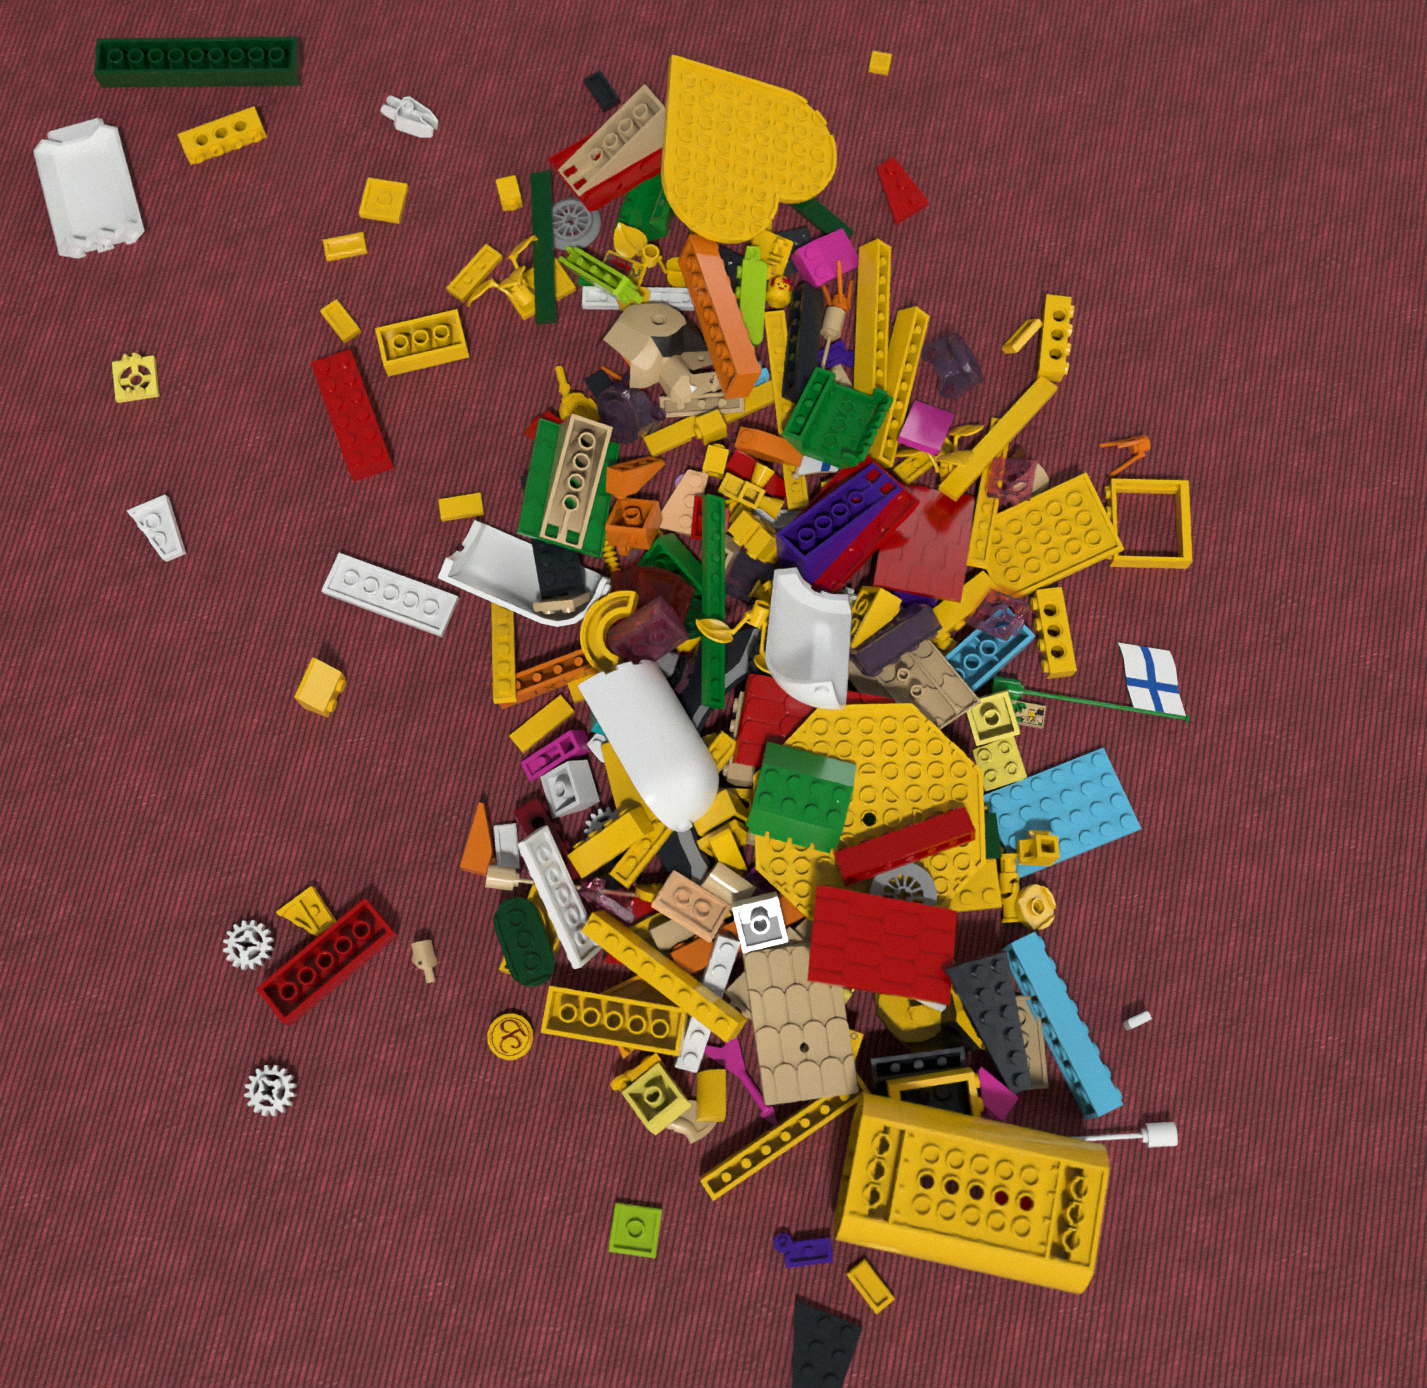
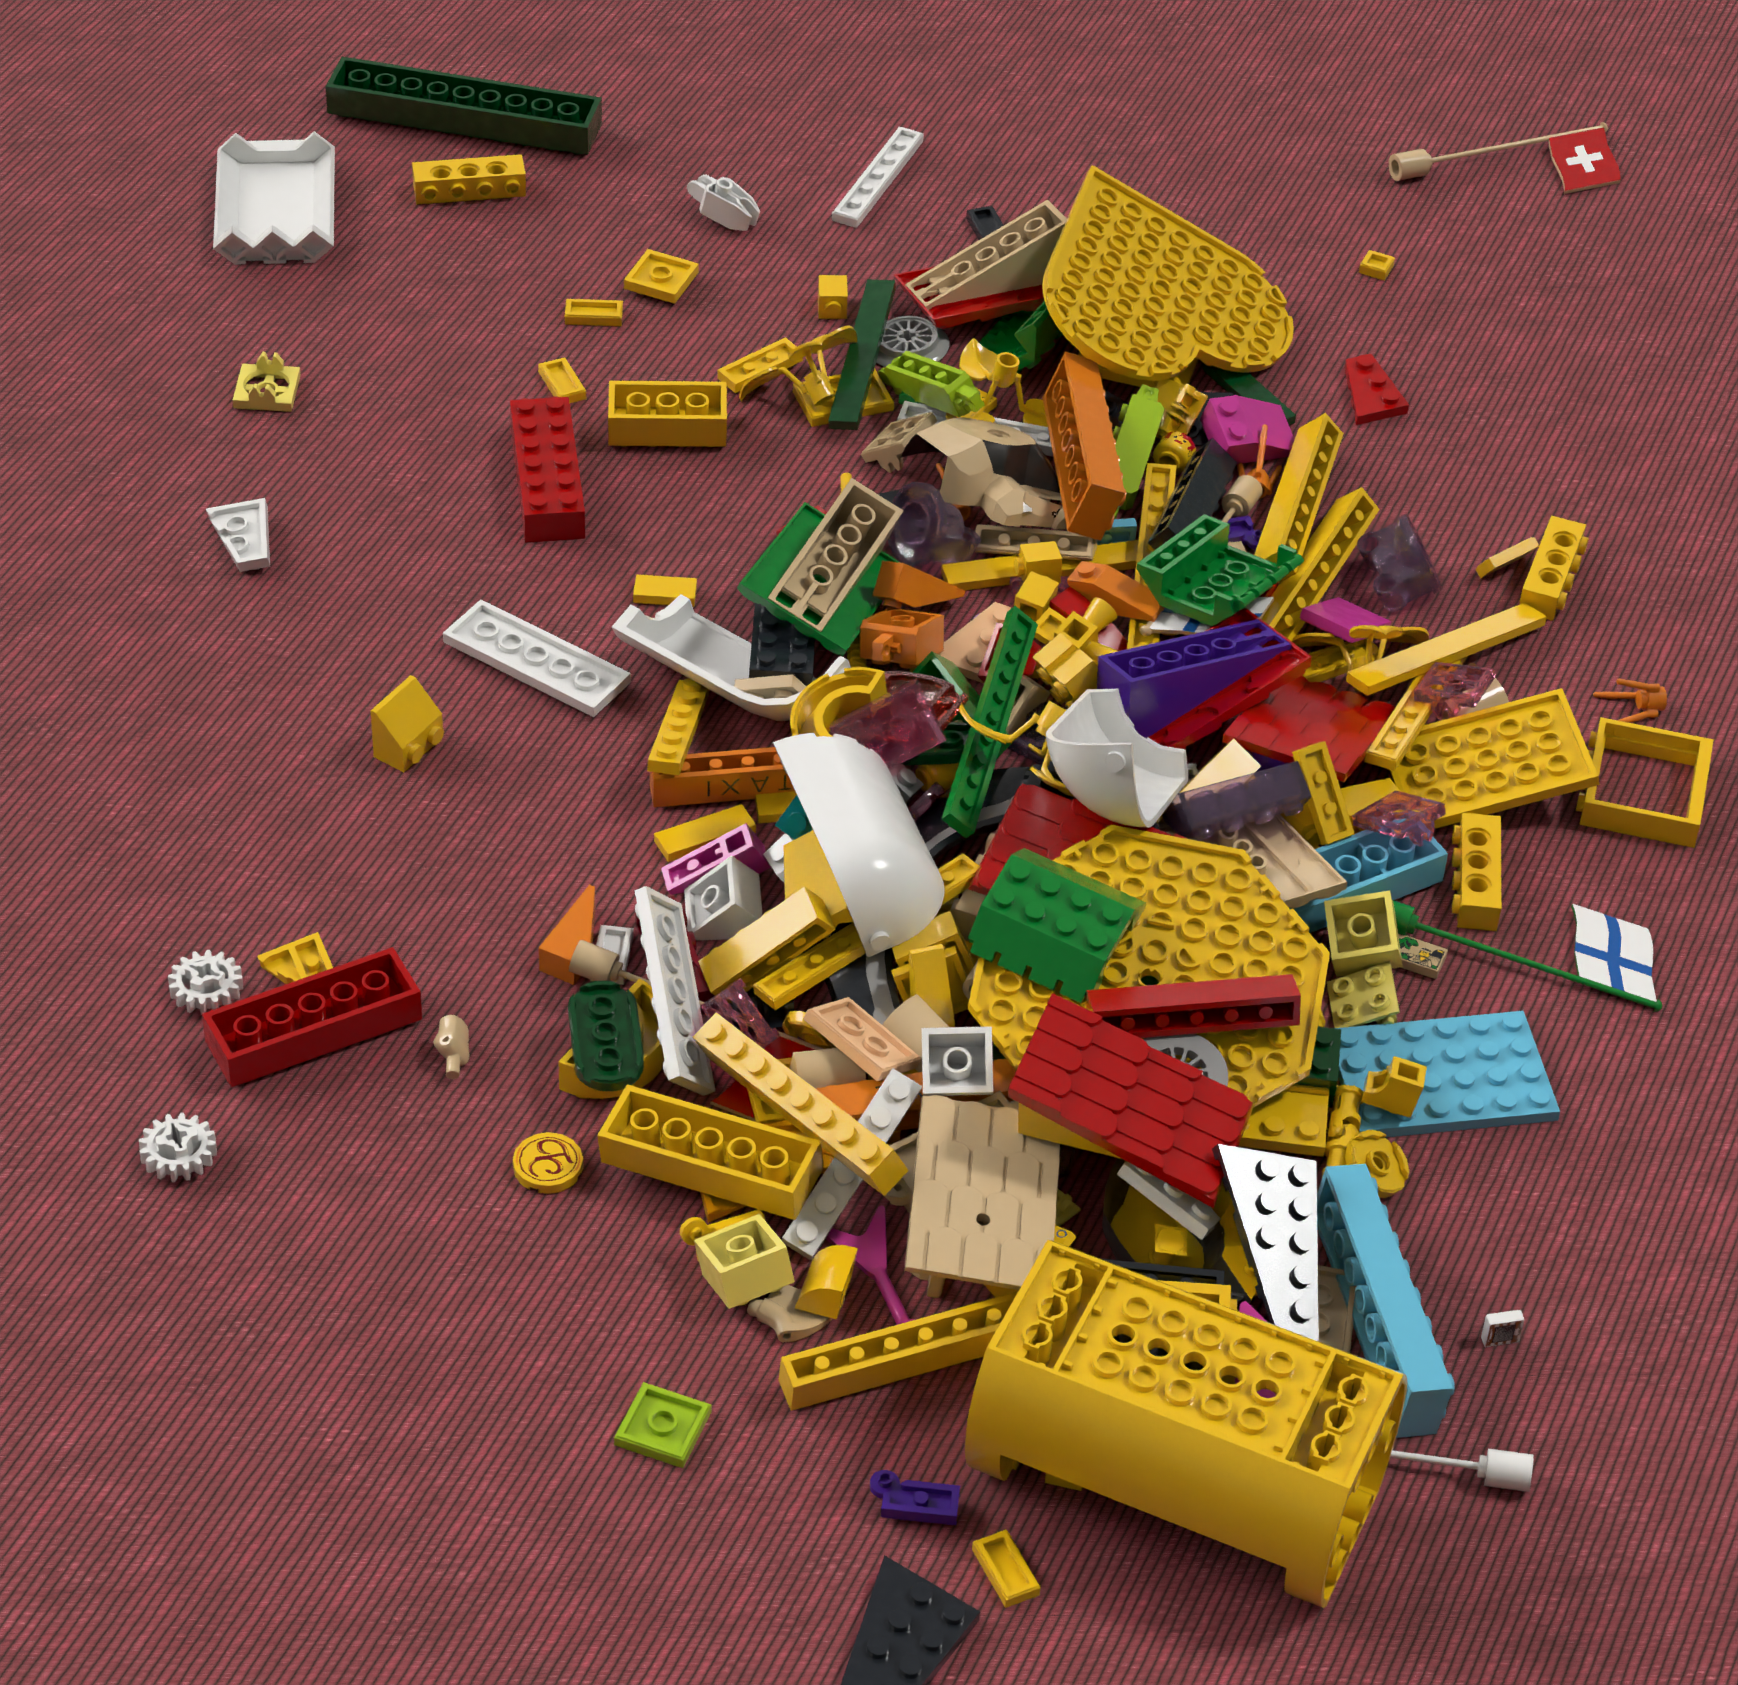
camera: 10 degrees right, 30 degrees down
(512, 57) = (877, 177): none -> white tile
(583, 314) = (893, 439): none -> tan piece
(948, 616) = (1327, 799): none -> yellow plate

